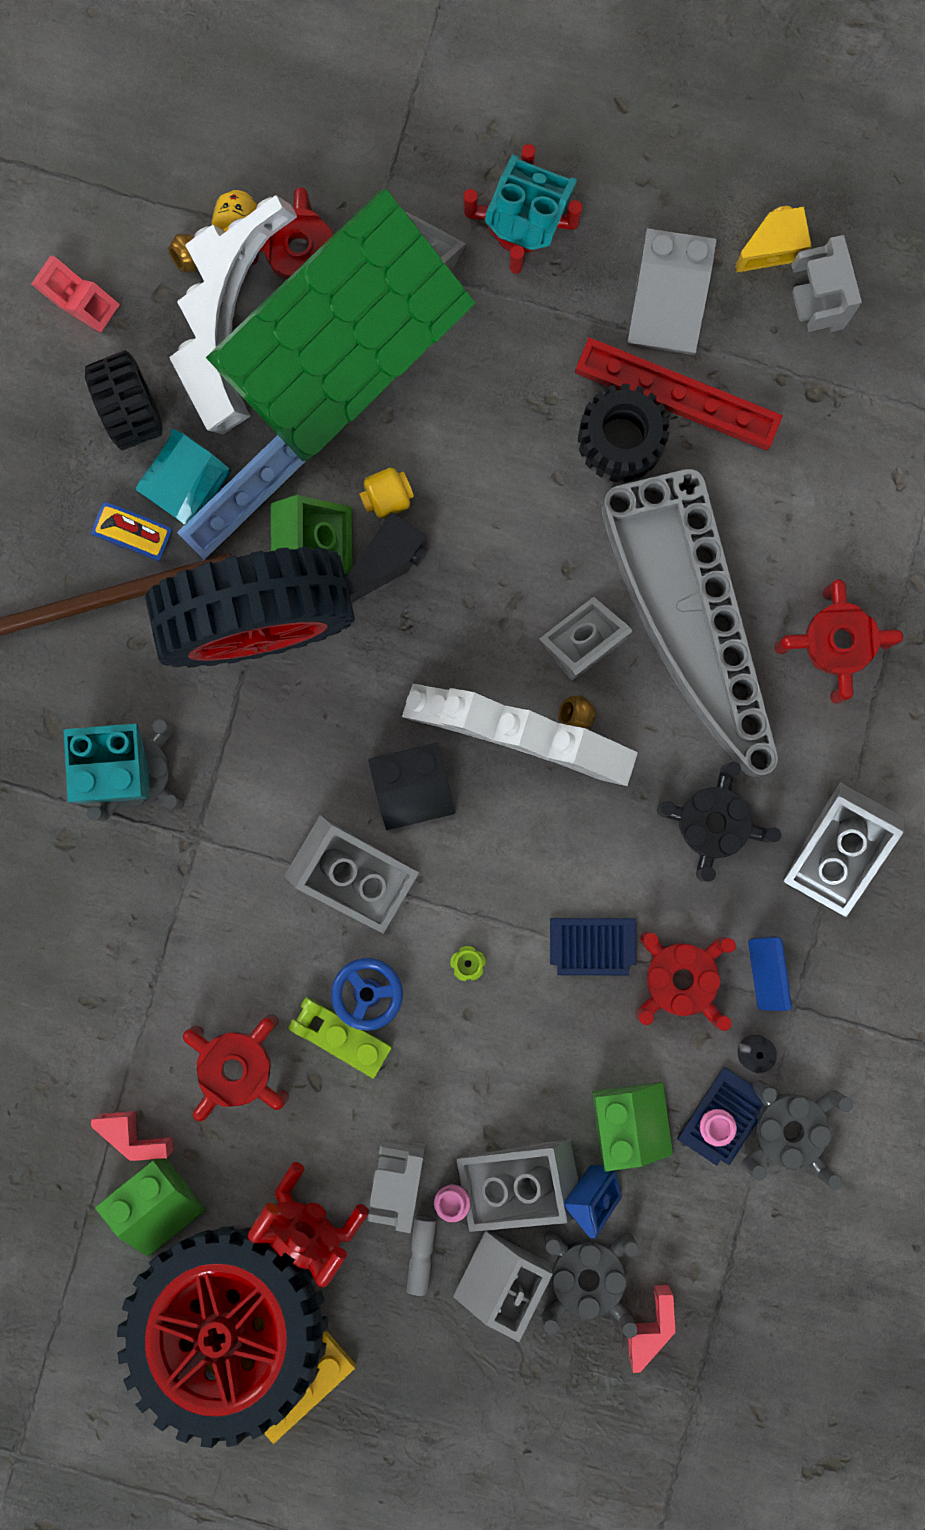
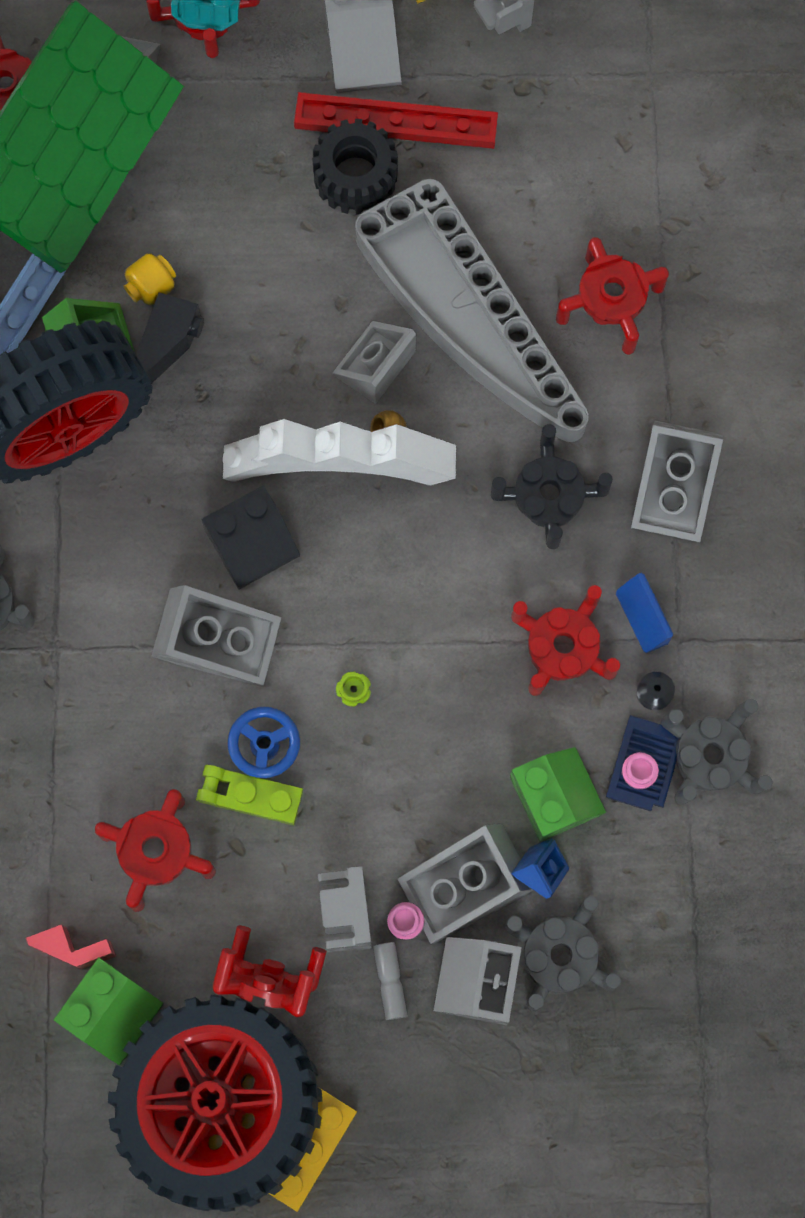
camera: 20 degrees left, 10 degrees down
(593, 945) = (468, 639): dark blue window -> none
(654, 1335) = (633, 995): coral slope -> none

